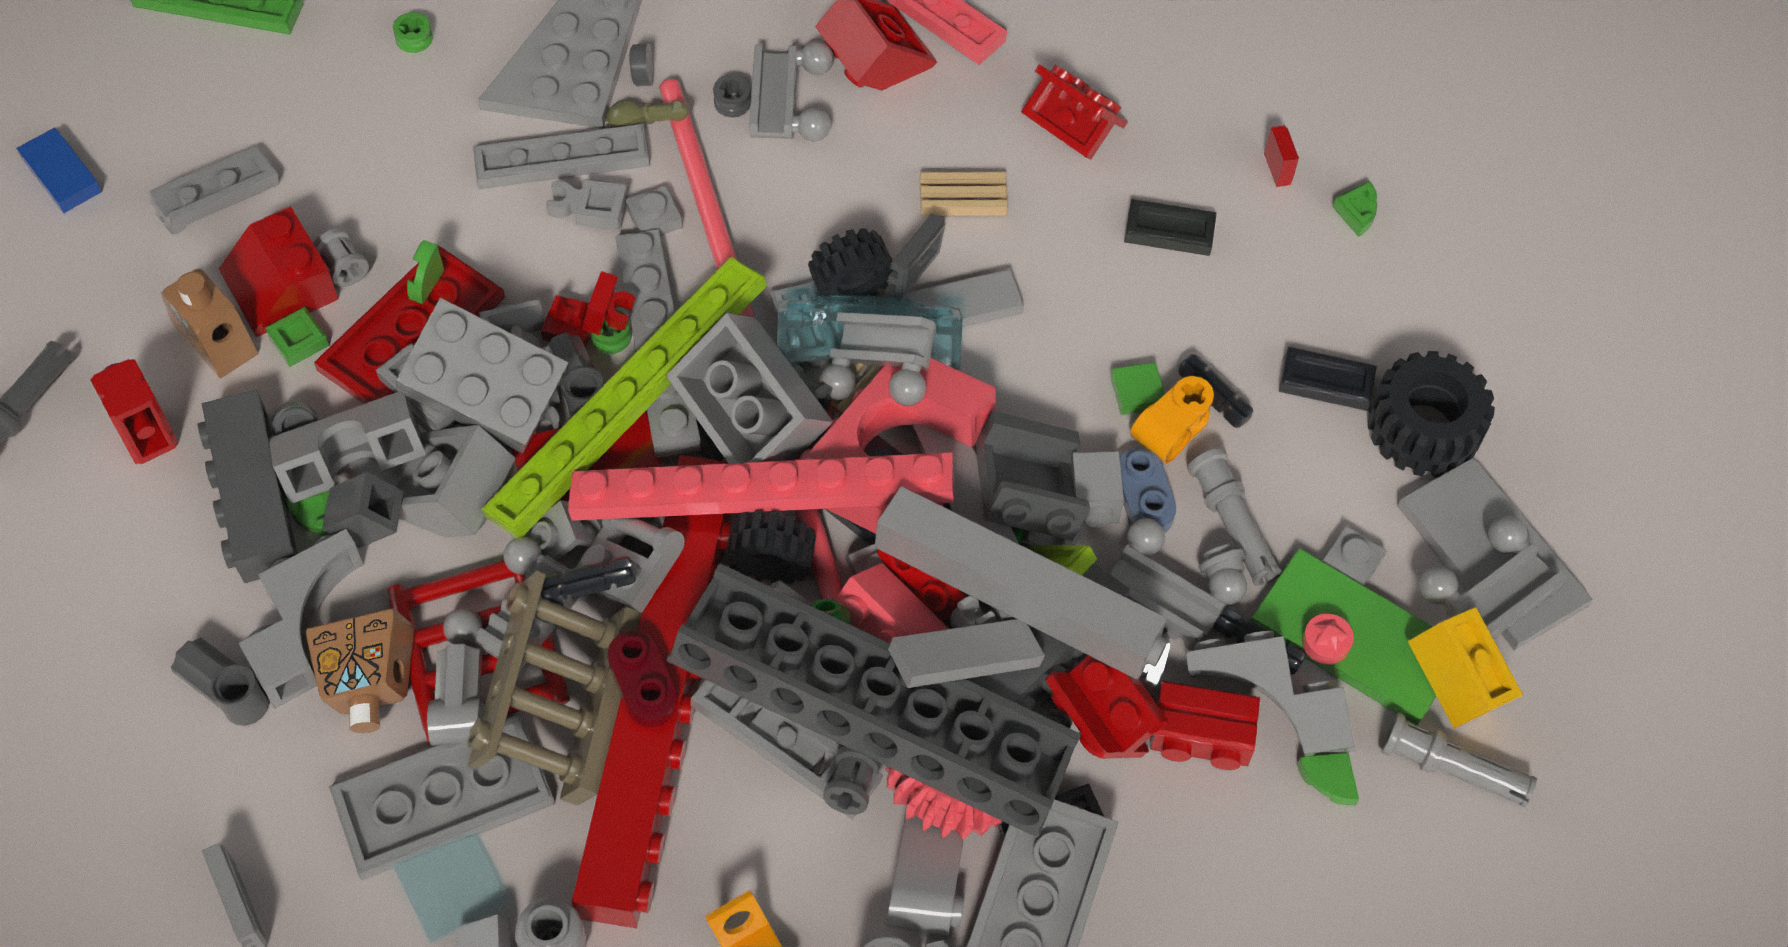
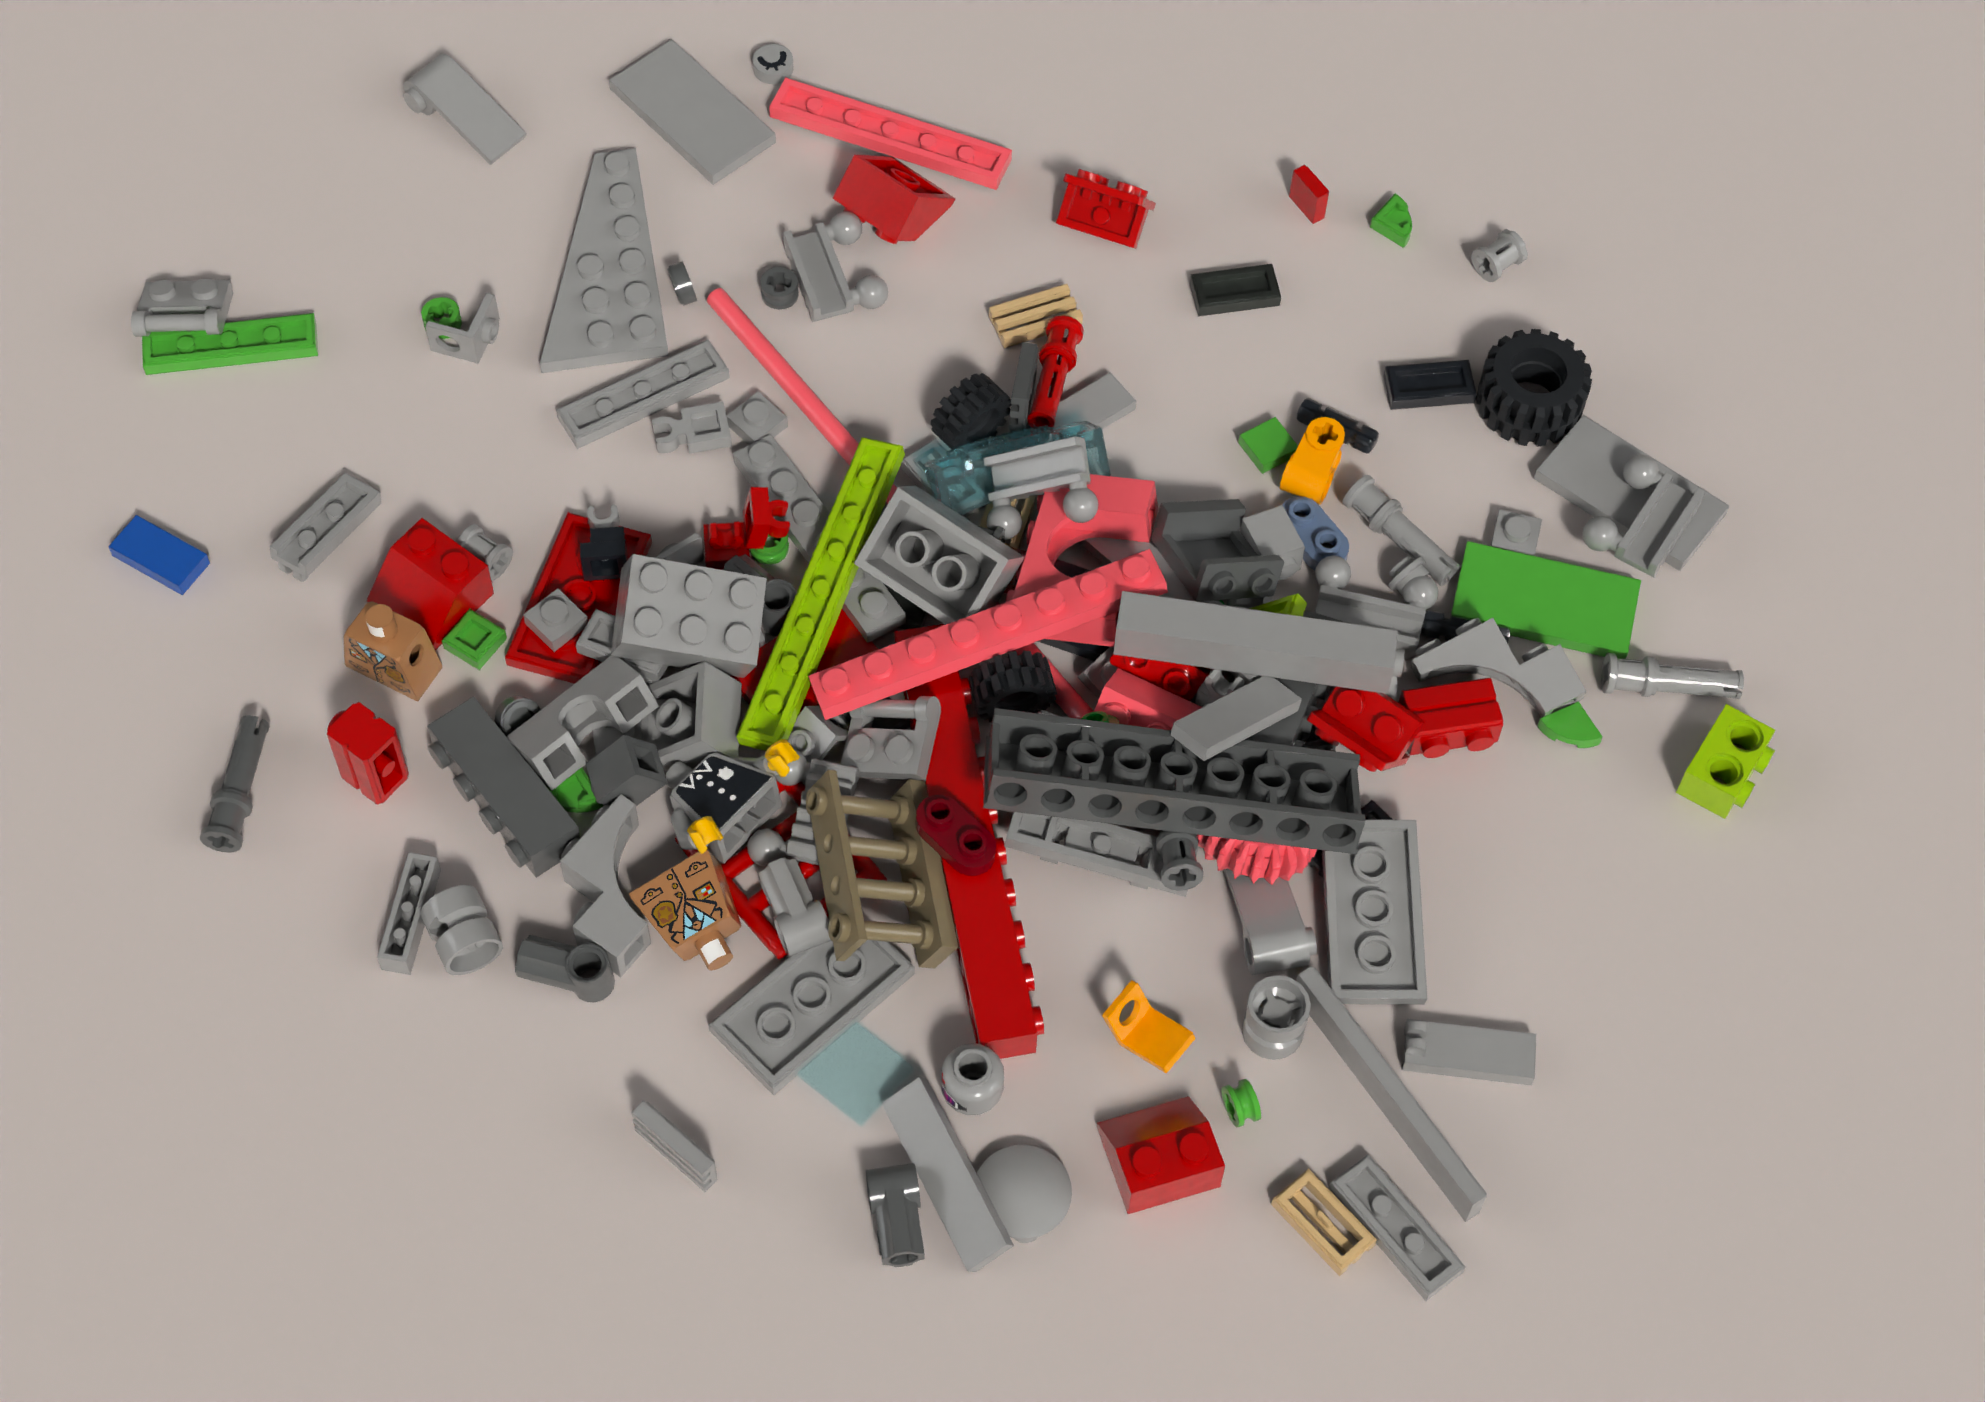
camera: 20 degrees left, 0 degrees up
(106, 578) = (405, 922): none -> light grey piece
(139, 611) = (462, 932): none -> light grey wheel
(372, 341) = (555, 620): none -> light grey plate
(428, 271) = (577, 534): bright green tile -> none
(433, 56) = (471, 342): none -> light grey bracket
(440, 568) = (726, 798): none -> torso
(447, 282) = (607, 548): none -> black piece
(589, 579) = (874, 763): black axle -> none
(629, 113) = (690, 334): olive piece -> none
(969, 227) = (1044, 406): none -> red pin
(1327, 639) = (1524, 610): coral tile -> none
(1450, 271) = (1499, 255): none -> light grey bush
(1465, 667) = (1649, 597): yellow panel -> none
(1475, 864) = (1723, 760): none -> lime brick

